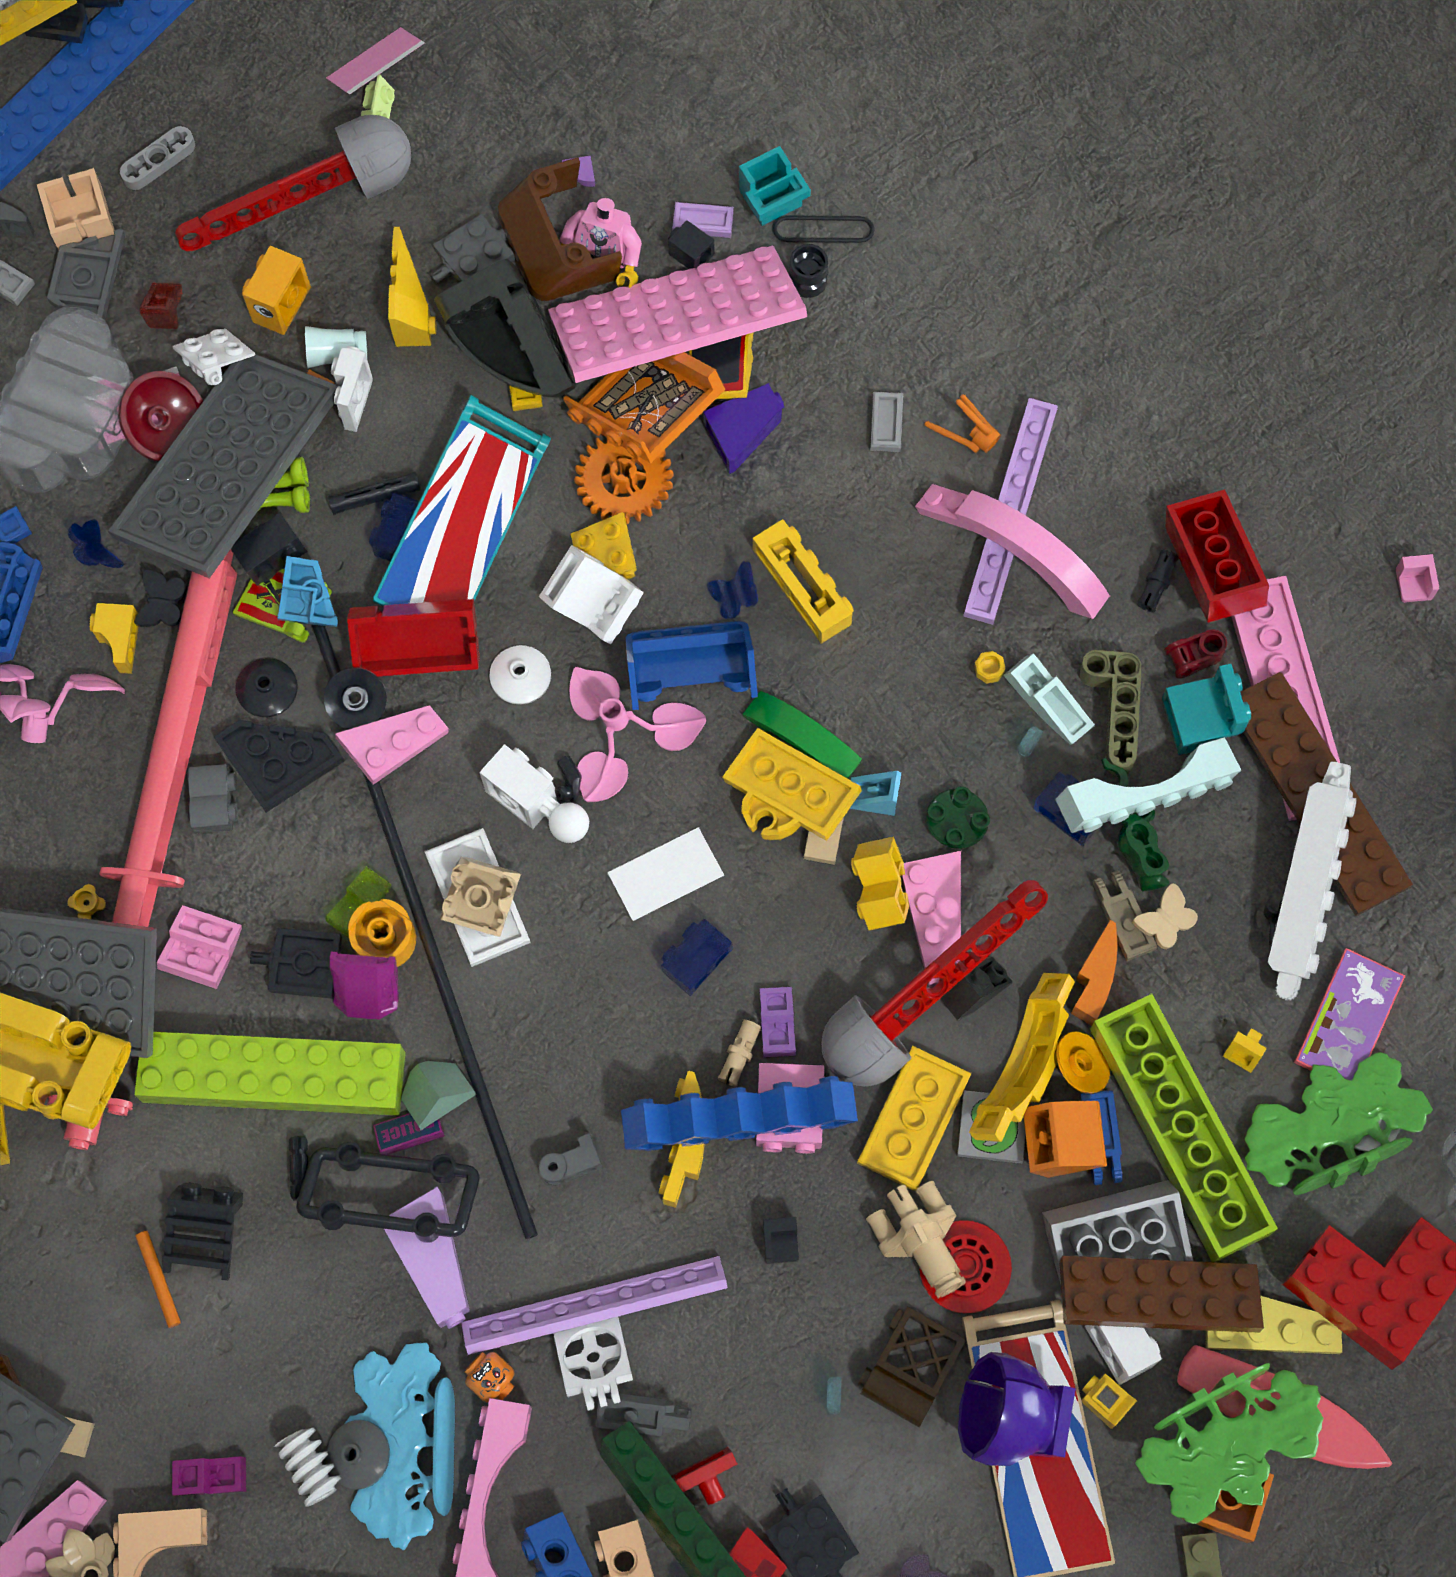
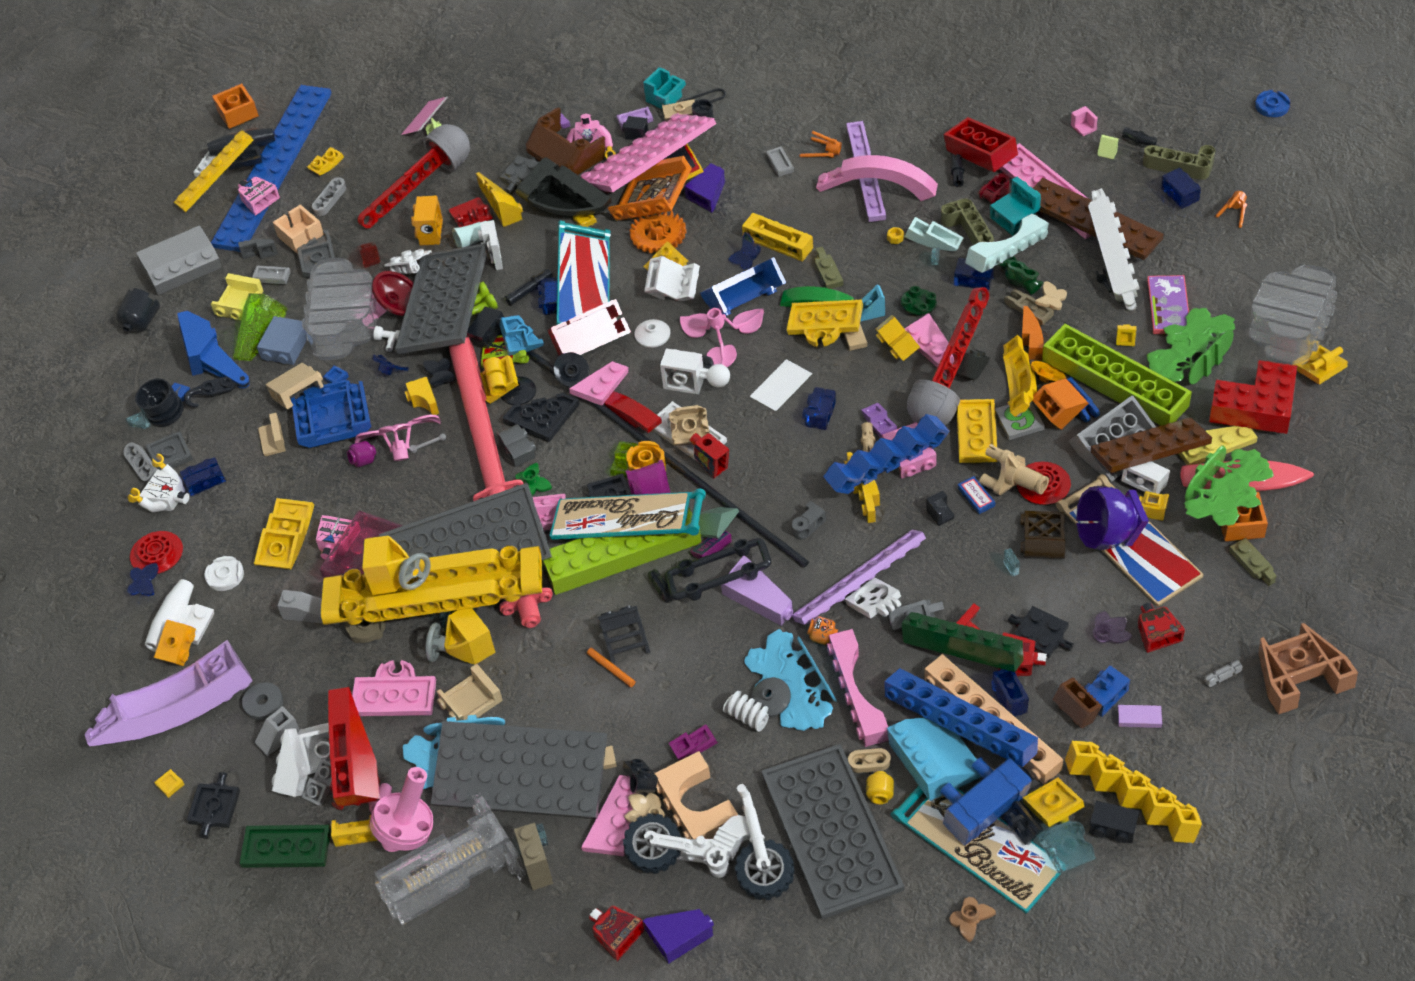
camera: 20 degrees left, 20 degrees down
(41, 111) = (257, 194): none -> bright pink torso
(62, 723) = (413, 448): none -> light grey hinge
(100, 1502) = (641, 776): none -> black plate
(110, 476) = (392, 336): none -> white piece
(182, 85) = (323, 164): none -> yellow slope
(206, 872) = (532, 477): none -> green animal
(241, 659) = (498, 377): none -> yellow plate
(297, 1030) = (626, 515): none -> flag
(355, 298) = (471, 212): none -> red hinge
(410, 822) = (633, 412): none -> red slope
(483, 980) = (710, 453): none -> red torso
(779, 236) = (681, 107): none -> tan plate
(849, 683) = (827, 269): none -> olive hinge
(850, 1238) = (976, 495): none -> tile
(1427, 651) = (1108, 147): none -> yellowish green slope

